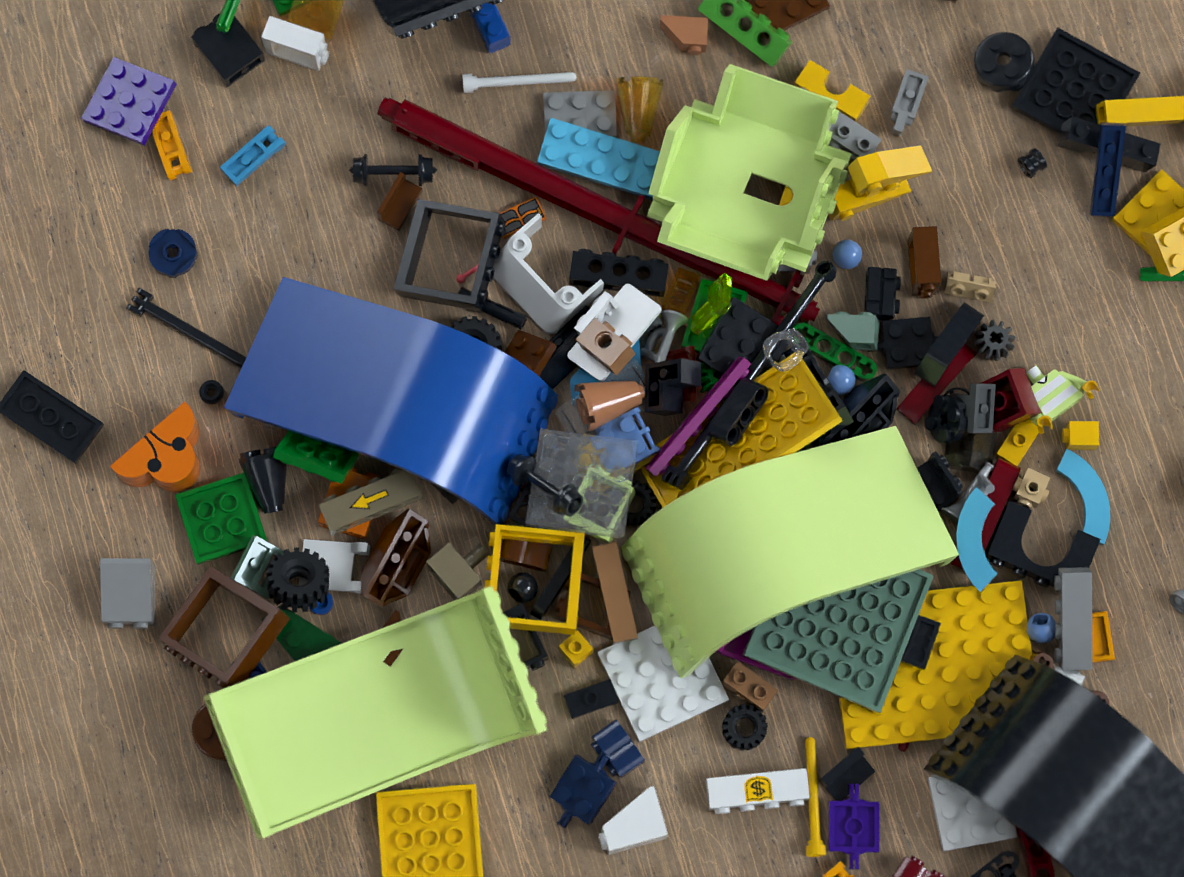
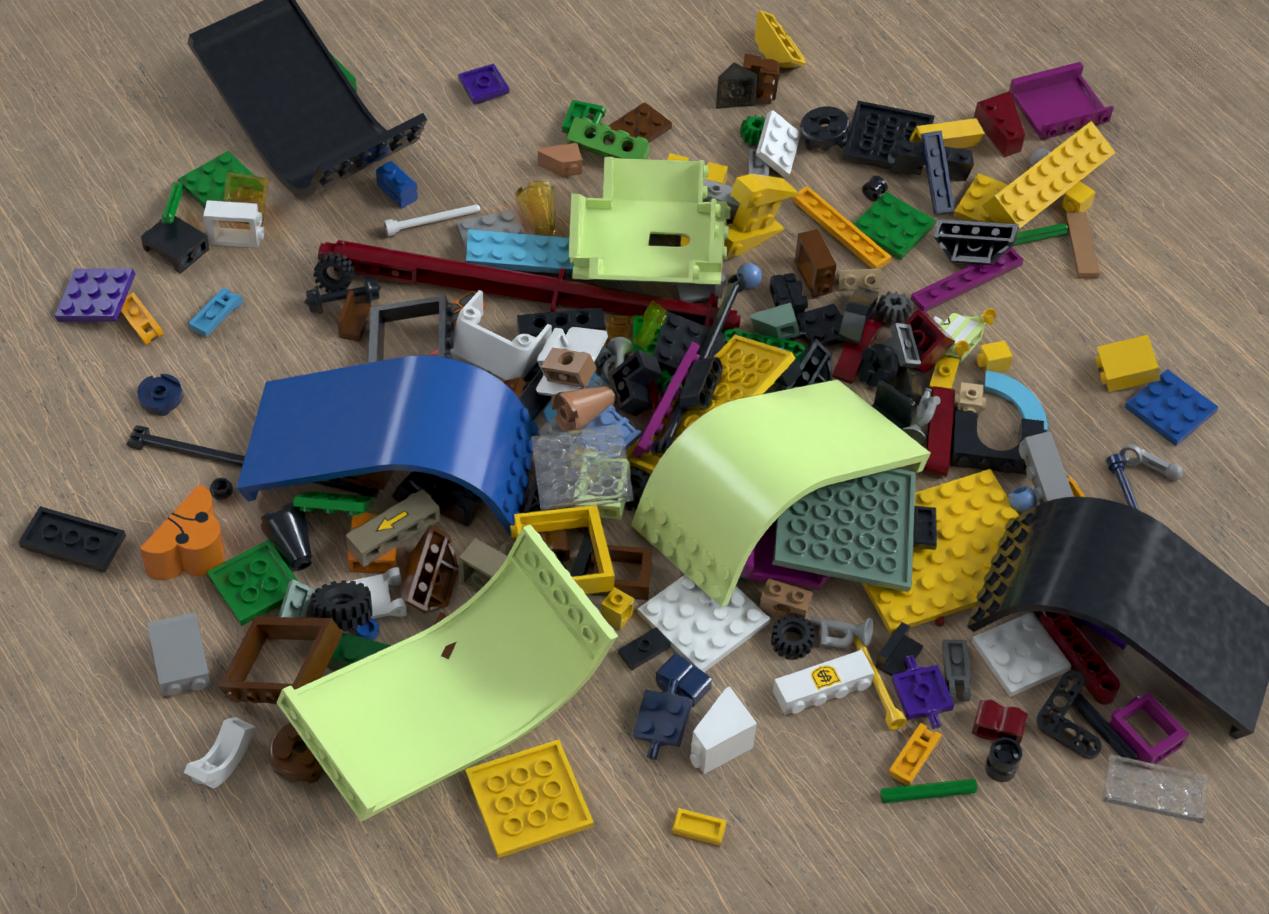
camera: 15 degrees left, 25 degrees down
(146, 715) = (224, 755): none -> white arch
(389, 141) = (341, 264): none -> black tyre
(566, 500) = (573, 472): black piece -> none
(614, 592) = (639, 550): medium nougat tile -> none
(796, 343) = (727, 330): clear piece -> none
(815, 742) = (863, 631): none -> light grey piece
(899, 807) = (957, 667): none -> dark grey hinge
(915, 40) = (751, 129): none -> green gear
(941, 73) = (778, 143): none -> white plate
(970, 539) = (934, 440): medium azure tile -> none
(974, 211) = (841, 228): none -> light orange plate
(1036, 219) = (895, 225): none -> green plate
(1092, 319) = (965, 281): none -> magenta plate
(1115, 277) = (974, 241): none -> black wedge
(1161, 609) = (1117, 465): none -> dark blue piece

